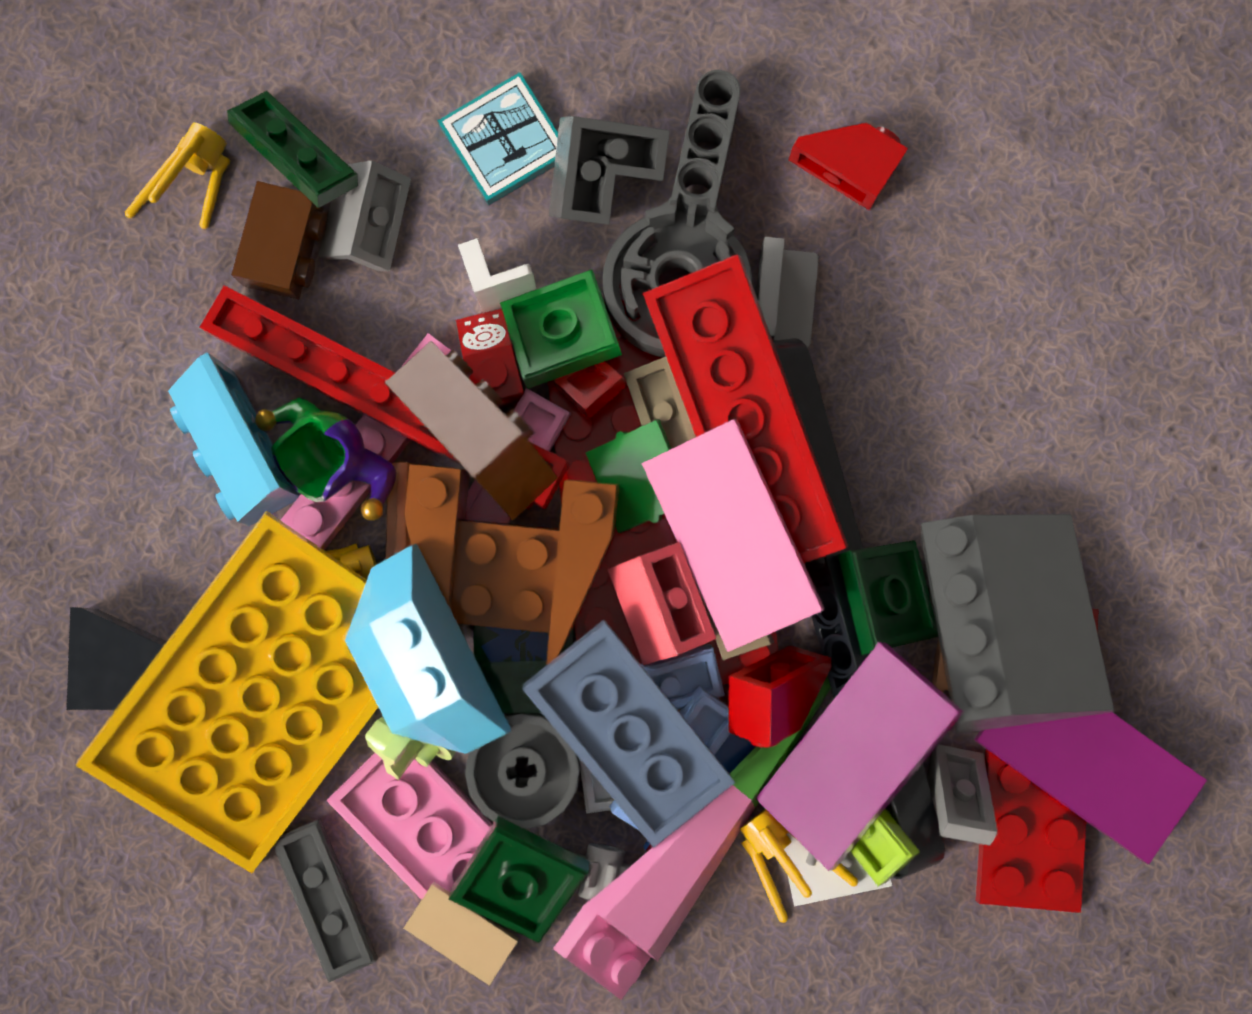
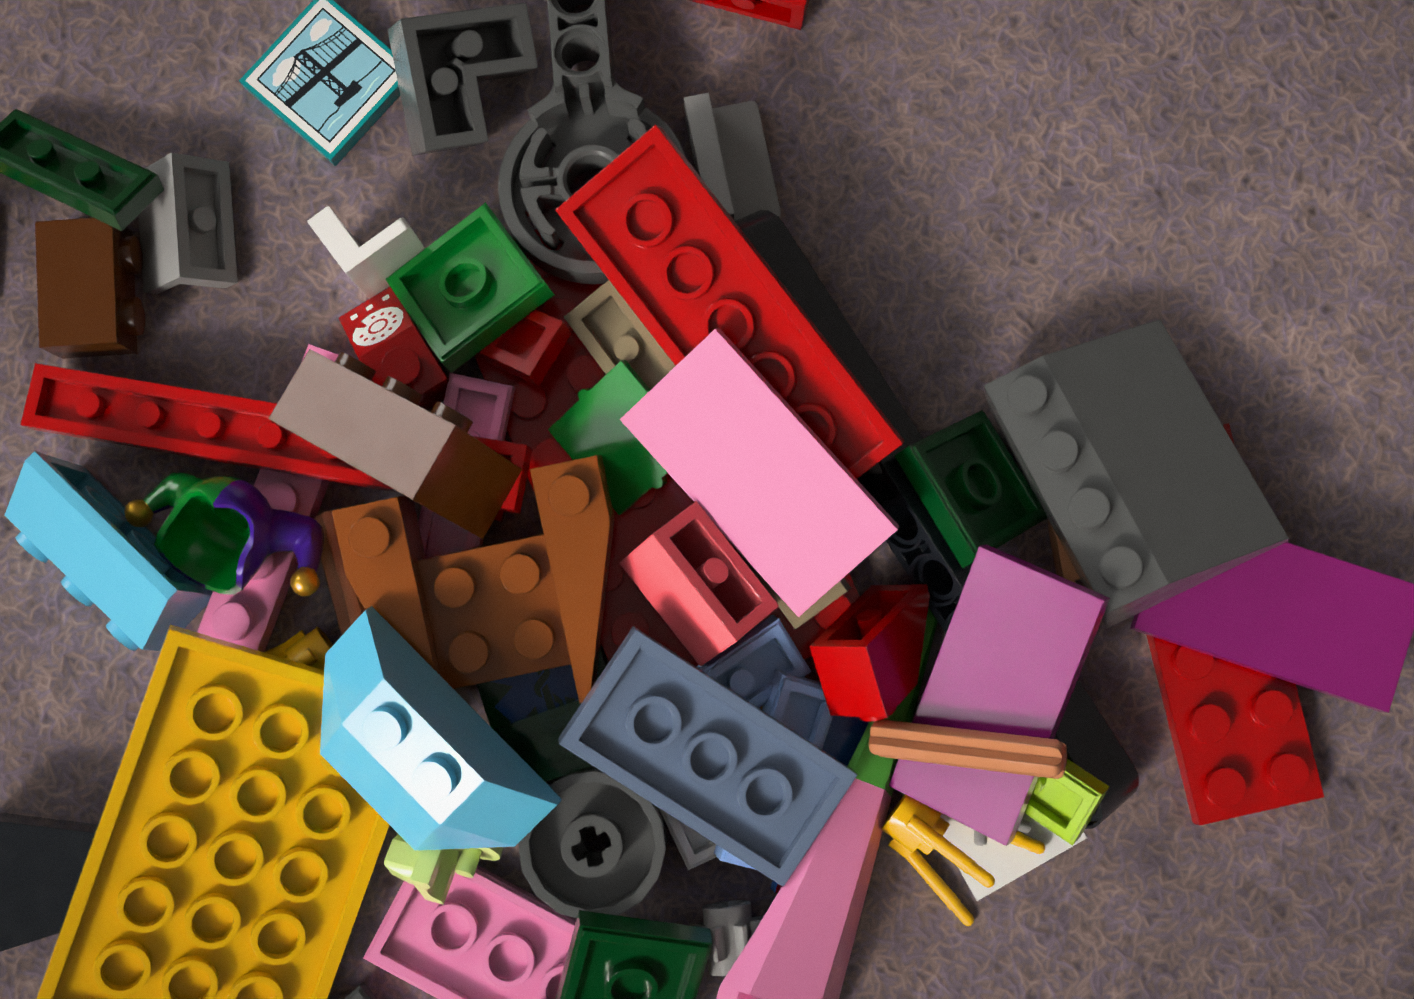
camera: 20 degrees left, 0 degrees up
(823, 789) = (969, 748): none -> nougat axle
(962, 795) = (1137, 701): light grey slope -> none

